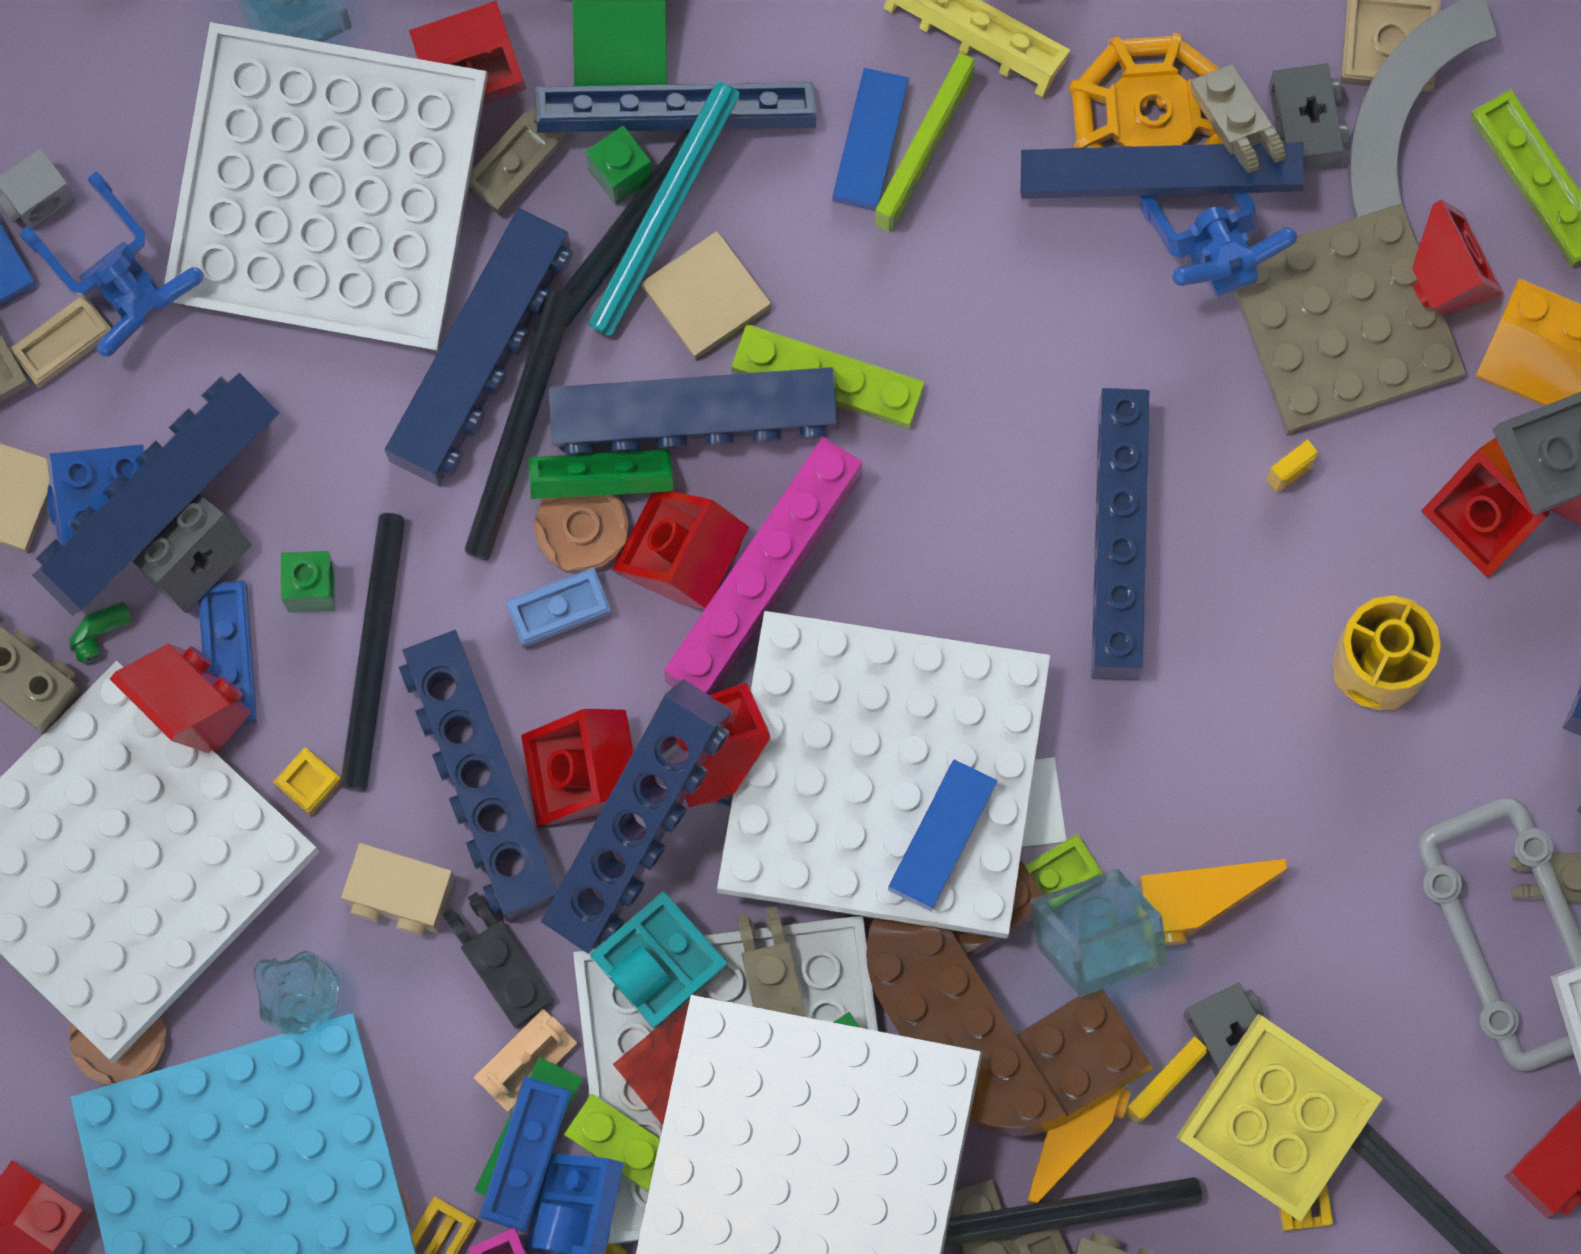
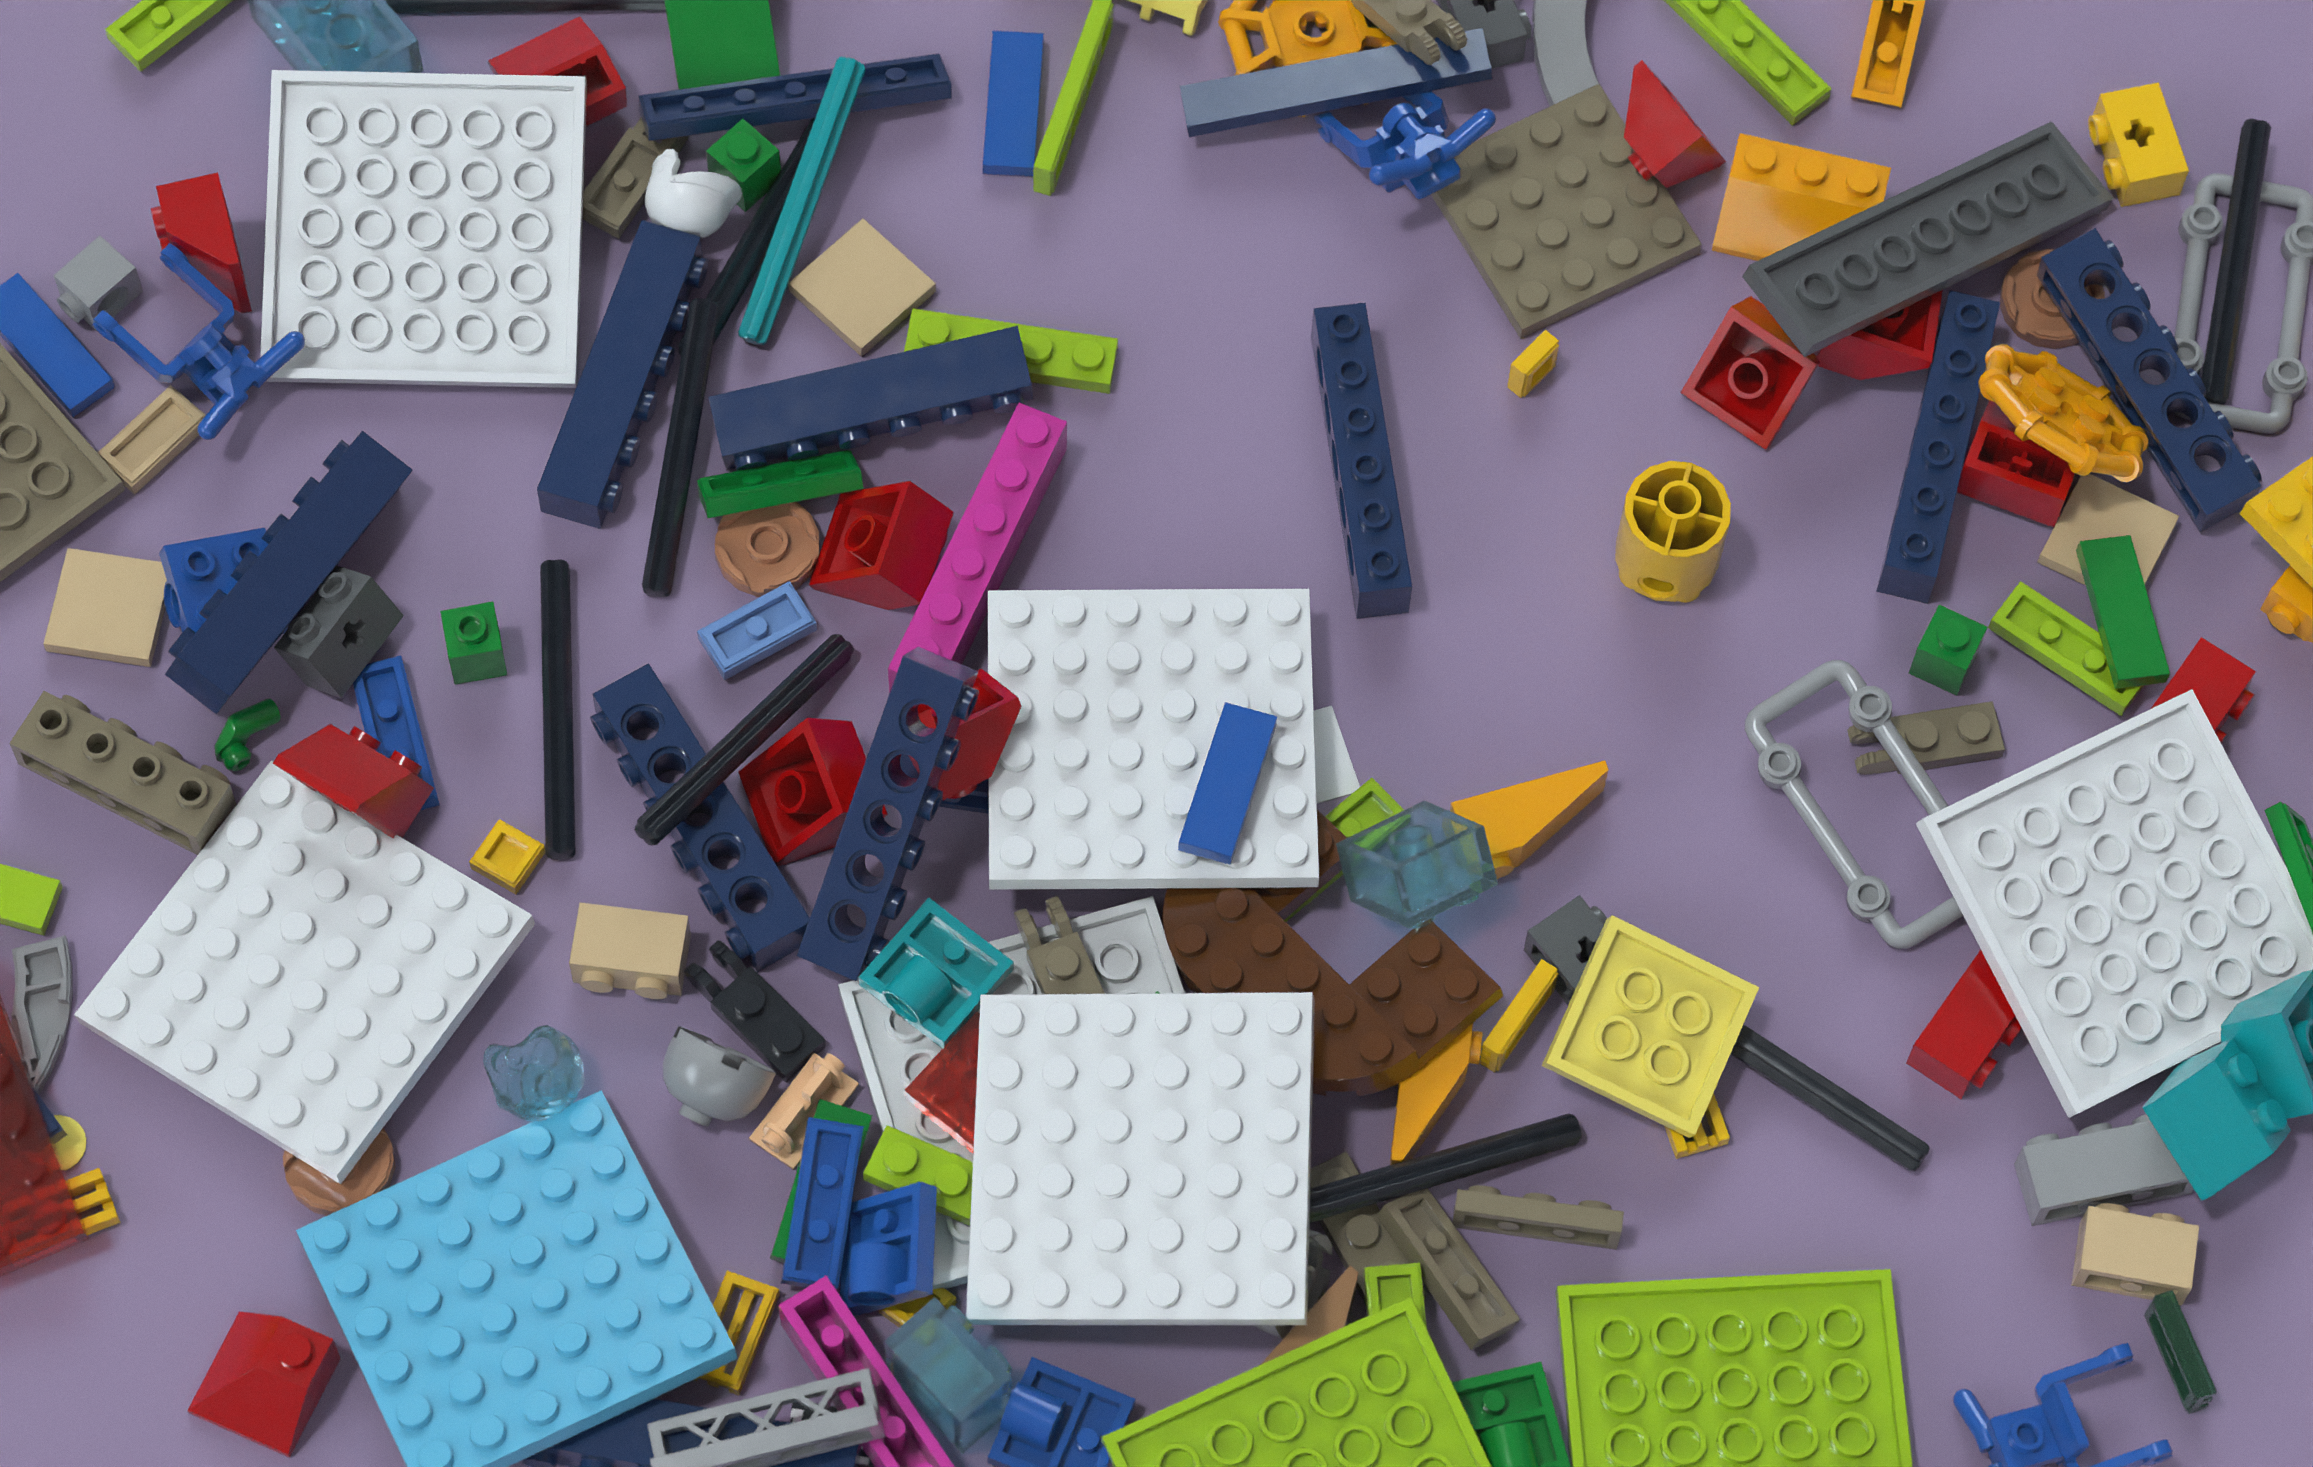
camera: 15 degrees left, 10 degrees down
(131, 161) = (199, 224): none -> red slope
(449, 1021) = (713, 1078): none -> light grey cylinder
(526, 715) = (743, 740): none -> black axle
(563, 196) = (690, 200): none -> white helmet

